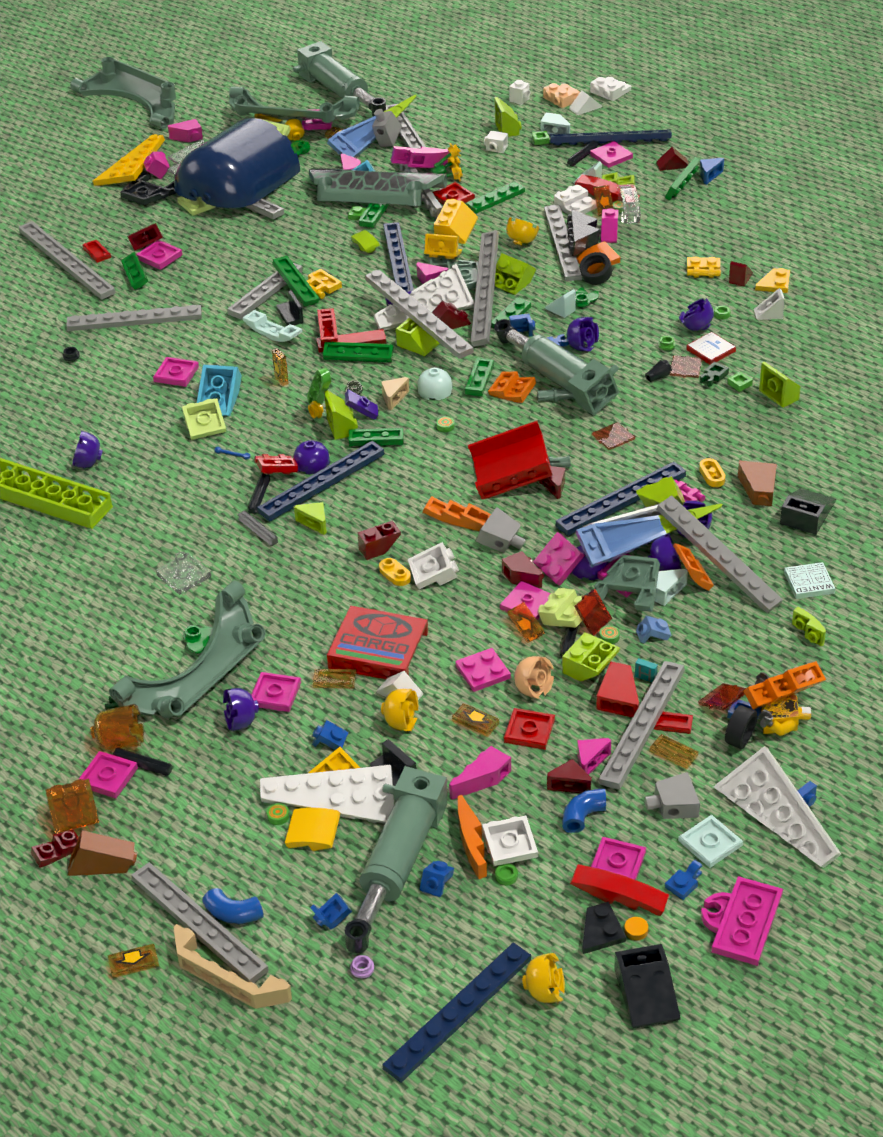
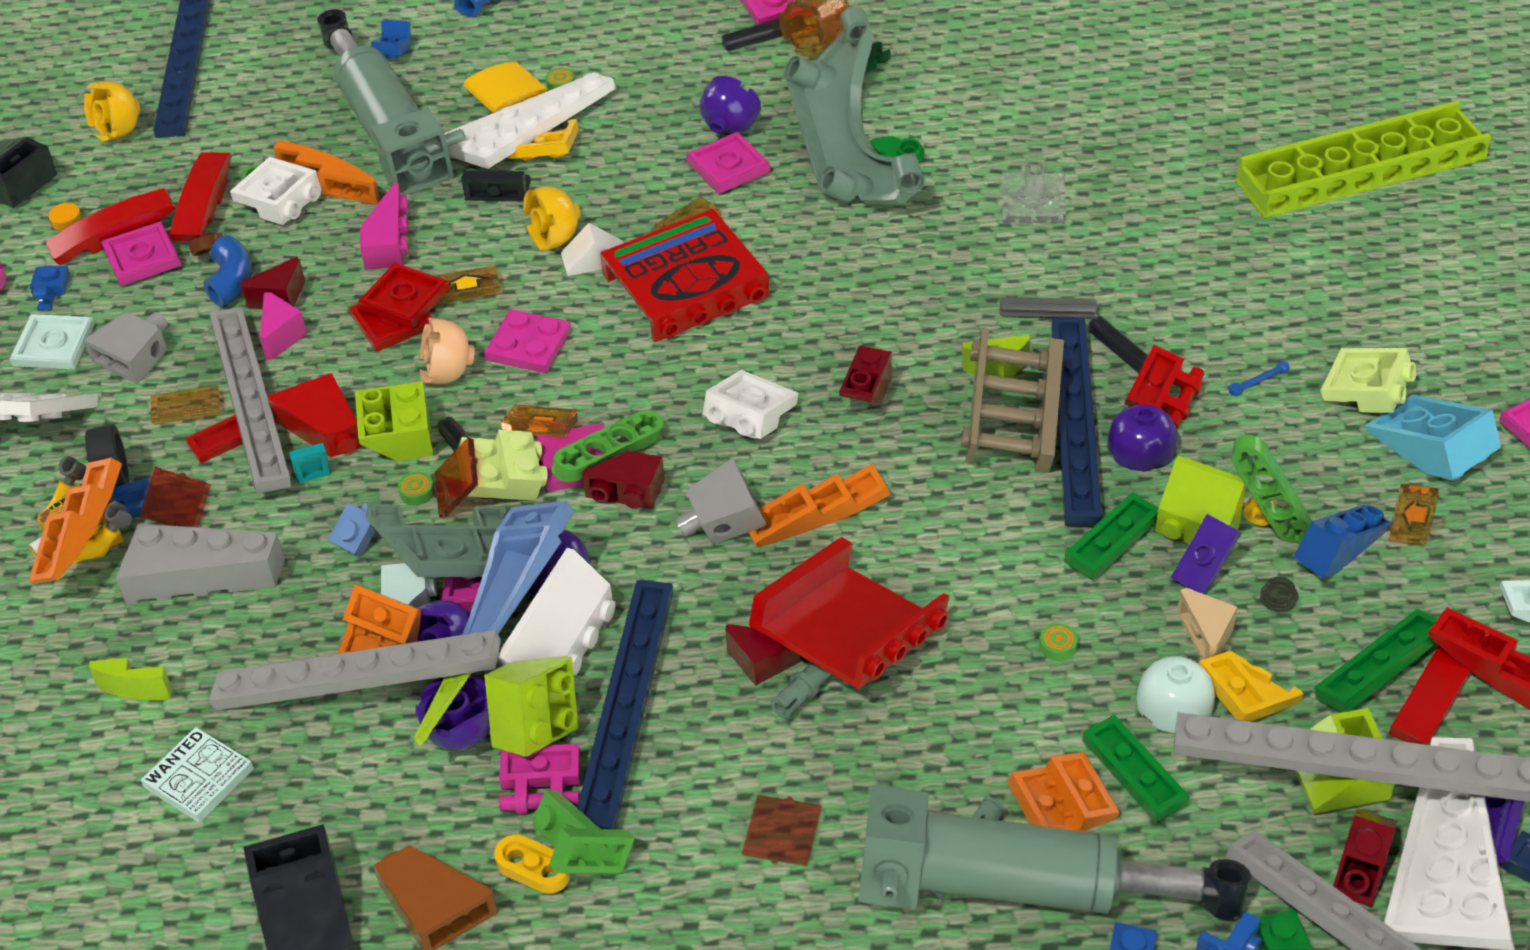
camera: 135 degrees right, 5 degrees up
(87, 451) = (1409, 226): dark purple cylinder -> none
(299, 385) = (1340, 538): none -> blue slope
(330, 735) = (603, 161): blue bracket -> none
(338, 477) = (1044, 389): none -> dark tan fence
(362, 961) = (310, 32): lavender plate -> none
(395, 572) = (799, 375): yellow plate -> none
(411, 370) = (1247, 688): none -> yellow wing
(435, 877) = (324, 127): blue bracket -> none
(513, 586) = (603, 440): none -> bright green beam
(515, 725) = (403, 295): none -> red tile
(547, 875) = (200, 196): none -> red slope
(558, 558) = (606, 521): dark pink plate -> none
(589, 834) = (203, 244): none -> reddish brown piece
(601, 928) = (99, 191): black wing -> none
(689, 456) = (577, 840): none -> bright green bracket
(738, 654) = (197, 560): none -> light grey wedge

